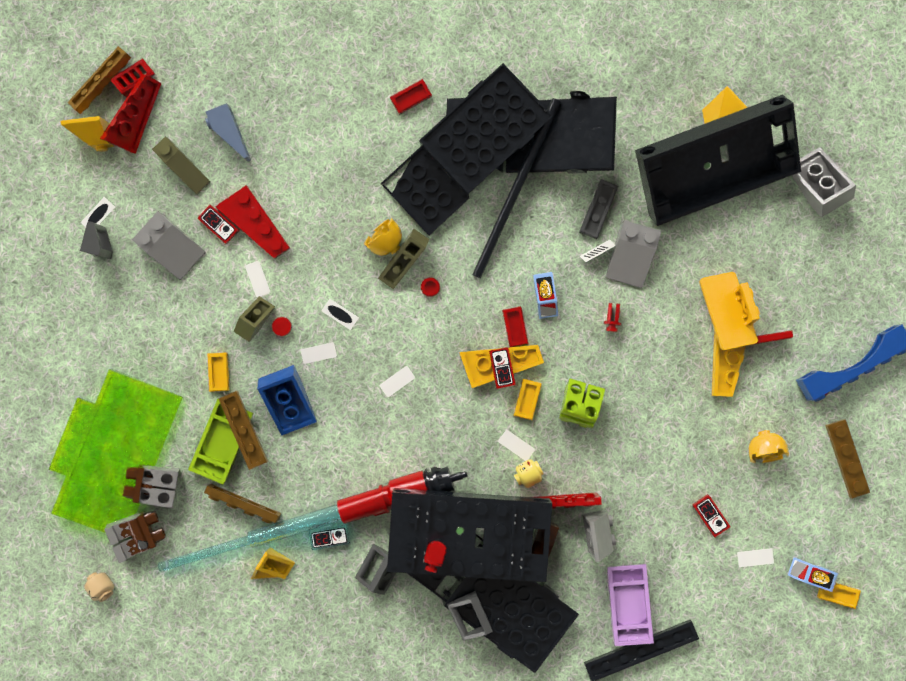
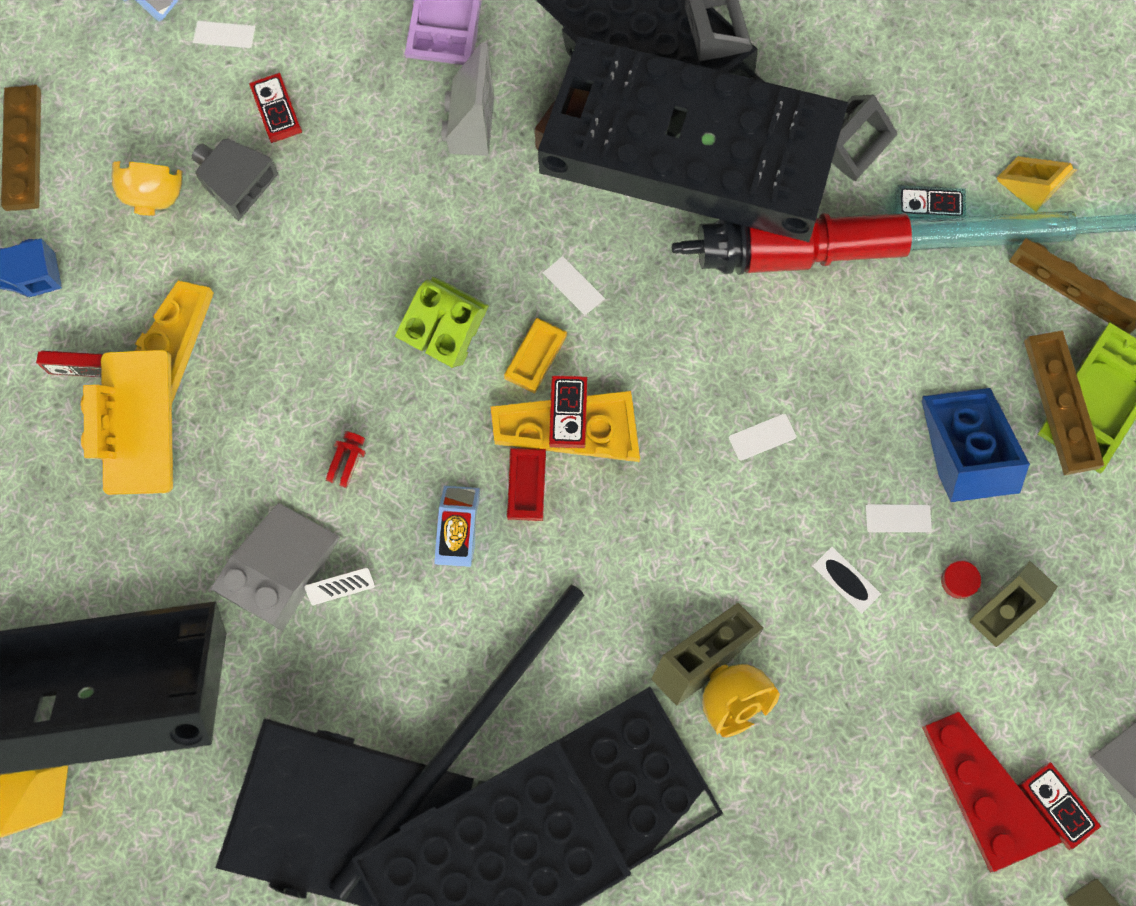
camera: 170 degrees left, 15 degrees down
(218, 372) = (1092, 523): yellow tile -> none
(257, 278) = (994, 681): white sticker -> none
(430, 287) = (667, 590): red tile -> none
(434, 555) = (761, 102): red arm -> none
(528, 473) = (564, 229): light yellow head -> none
(573, 500) = (508, 172): red wing -> none
(598, 209) = (315, 666): dark grey tile -> none
(722, 466) = (234, 174): none -> dark grey torso

